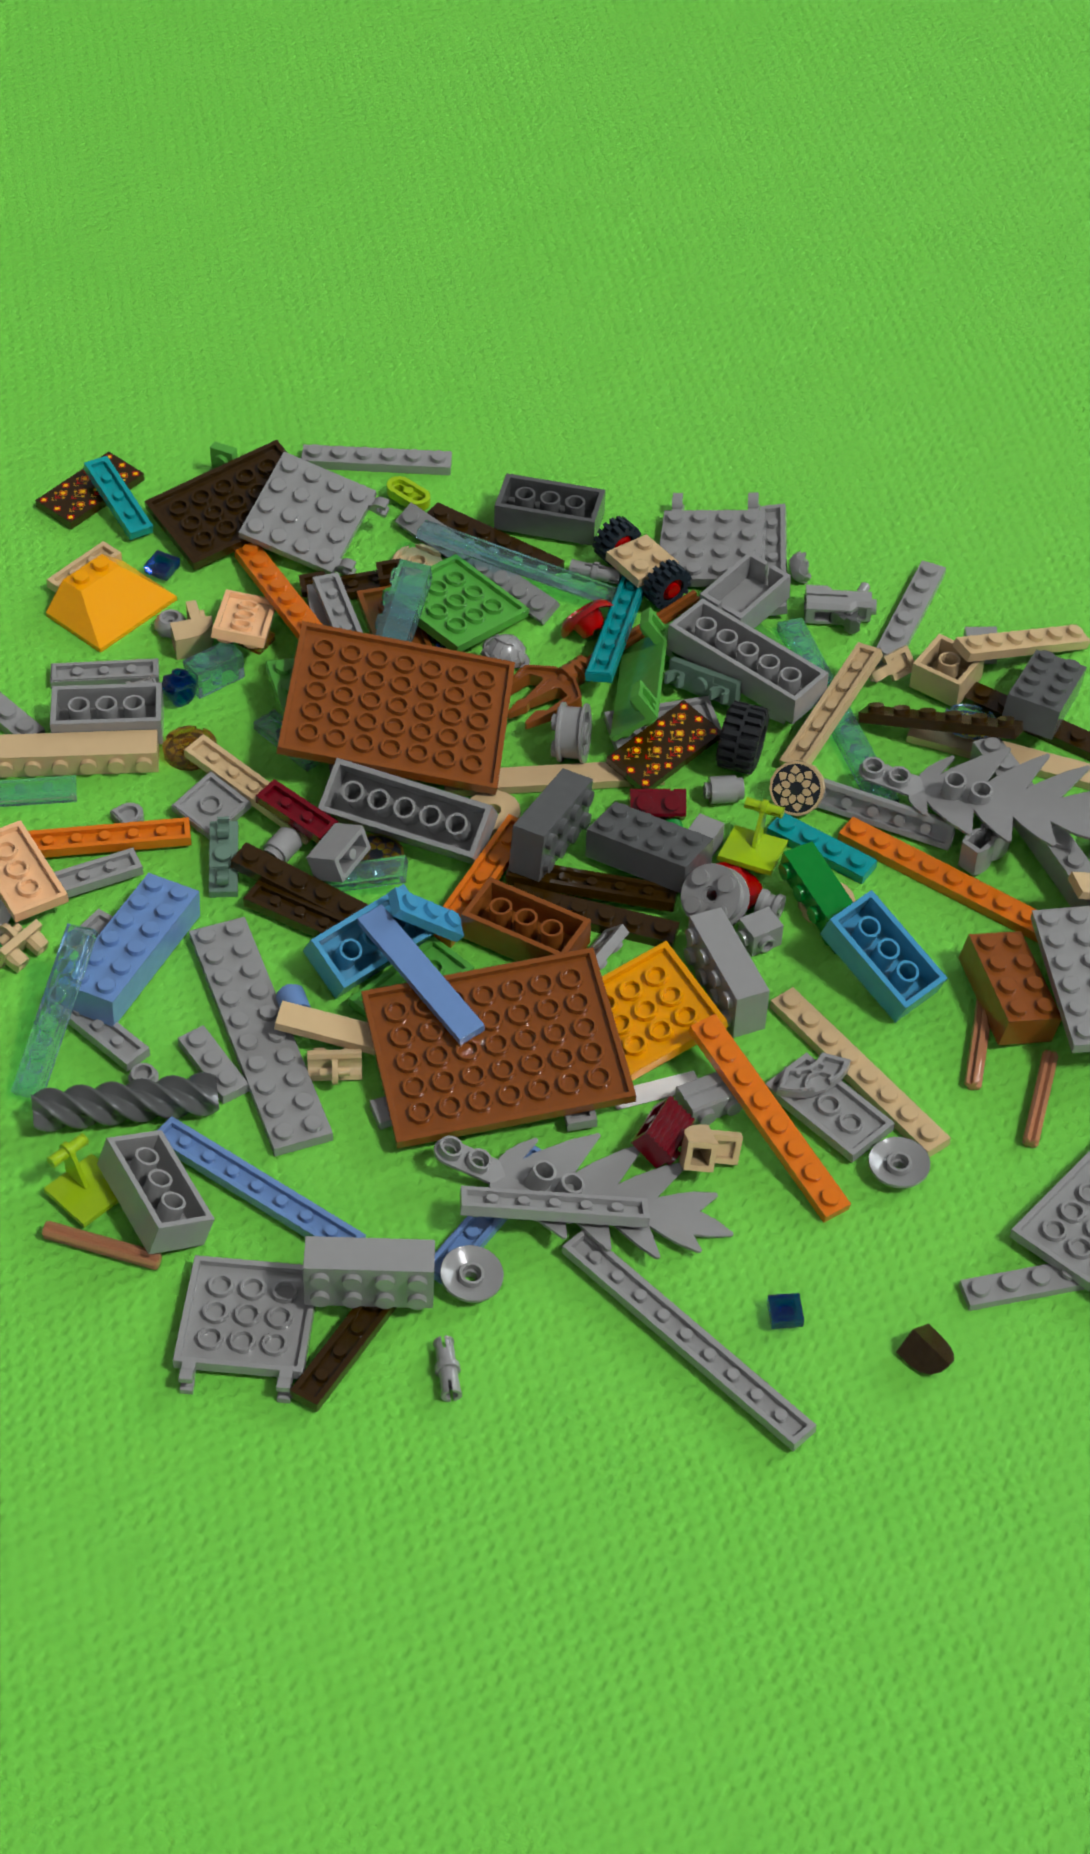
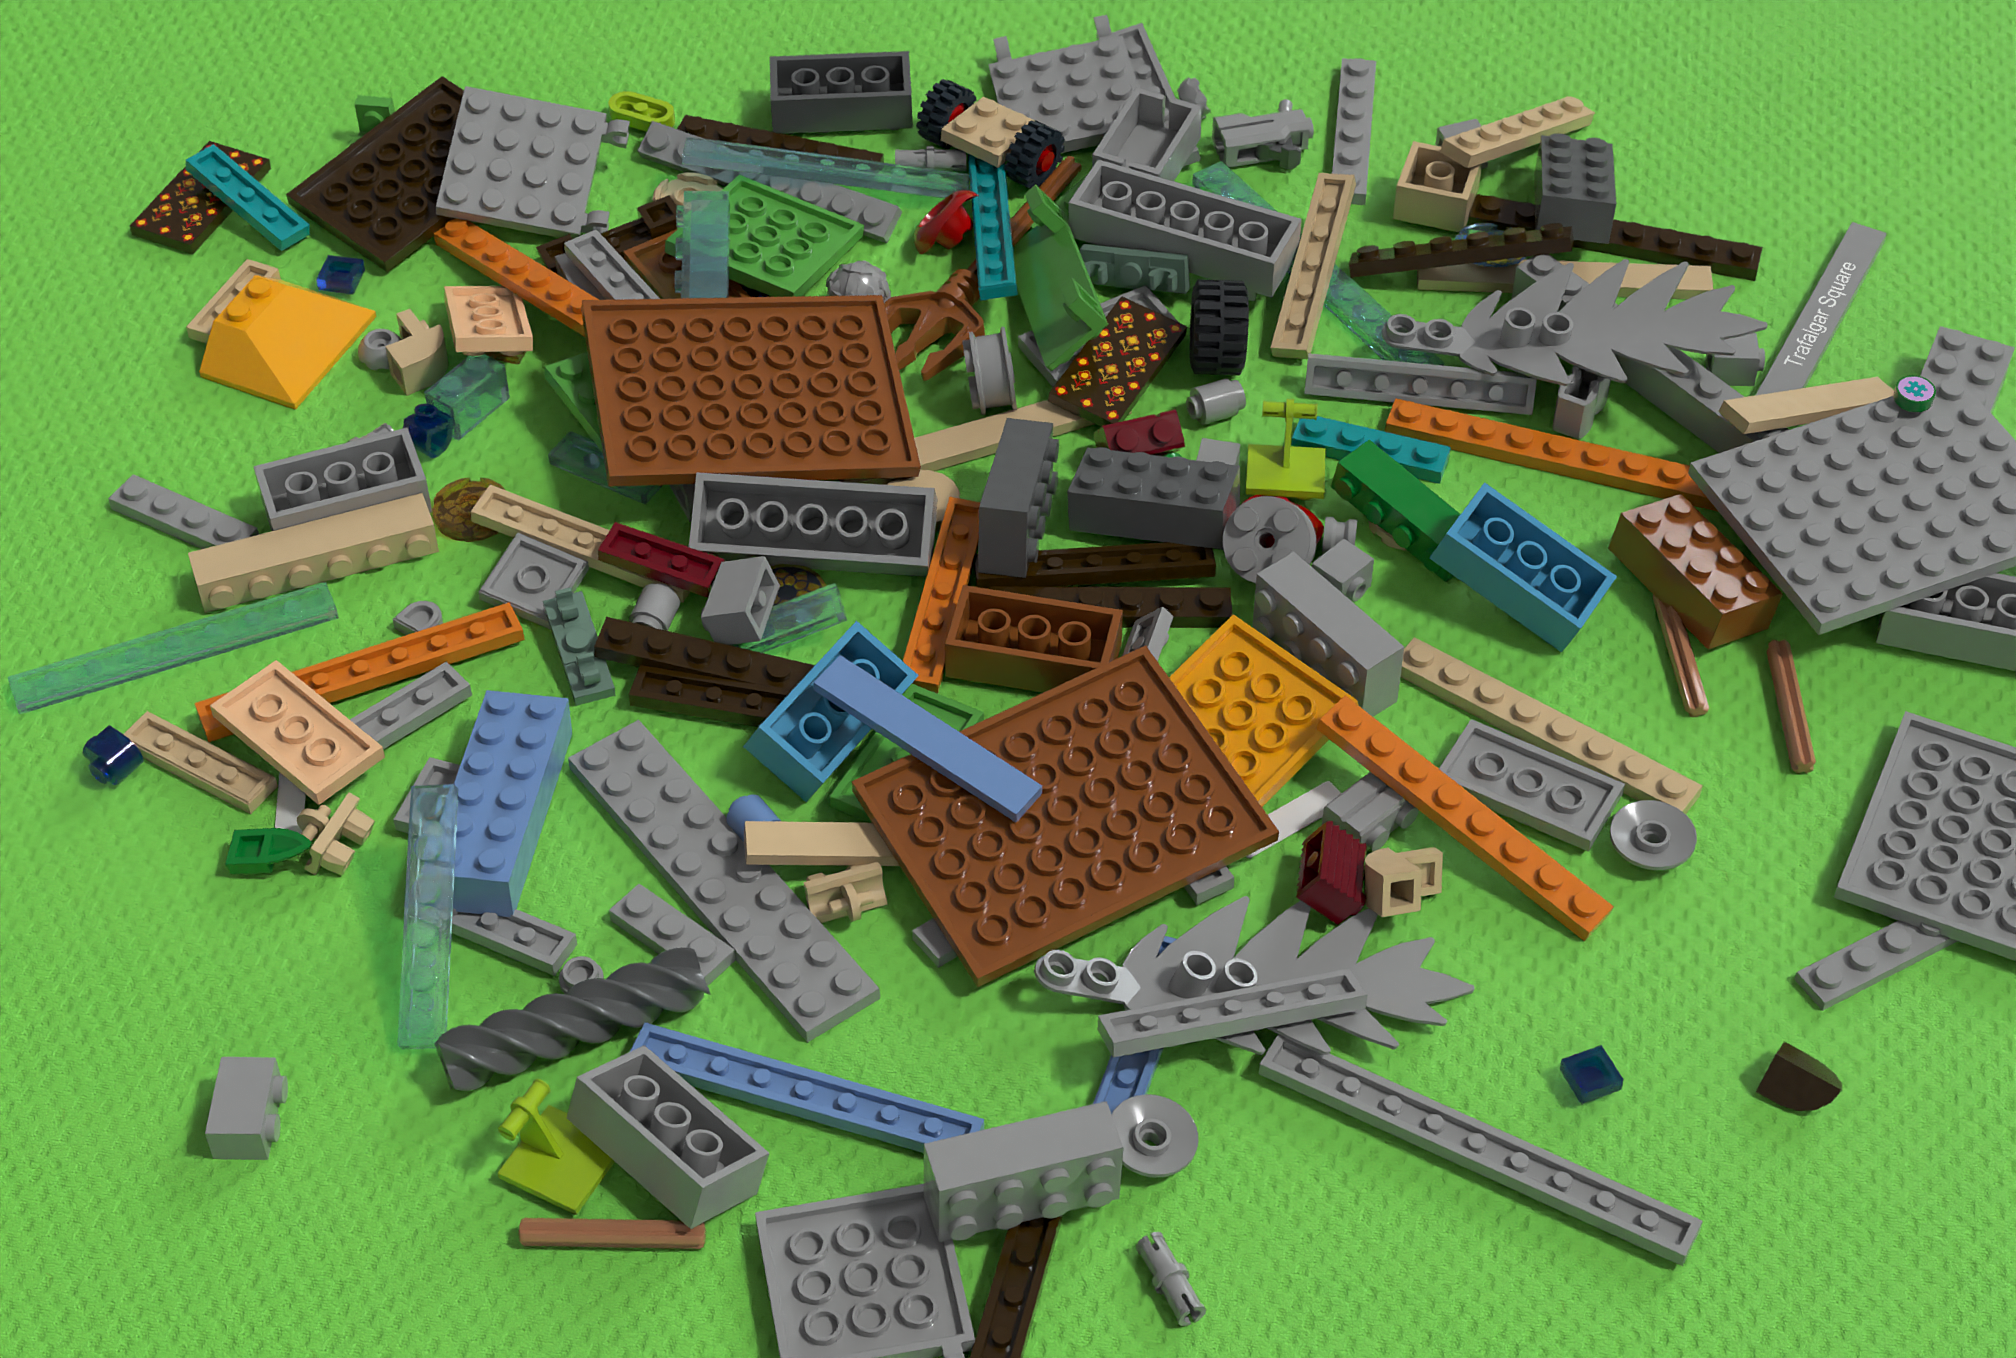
camera: 15 degrees left, 0 degrees up
(103, 672) = (310, 434): light grey tile -> none
(379, 459) = (589, 75): light grey plate -> none
(425, 914) = (900, 655): dark azure plate -> none
(797, 787) = (1313, 374): tile -> none
(814, 1078) = (1496, 751): light grey tile -> none
(896, 664) = (1371, 193): tan plate -> none

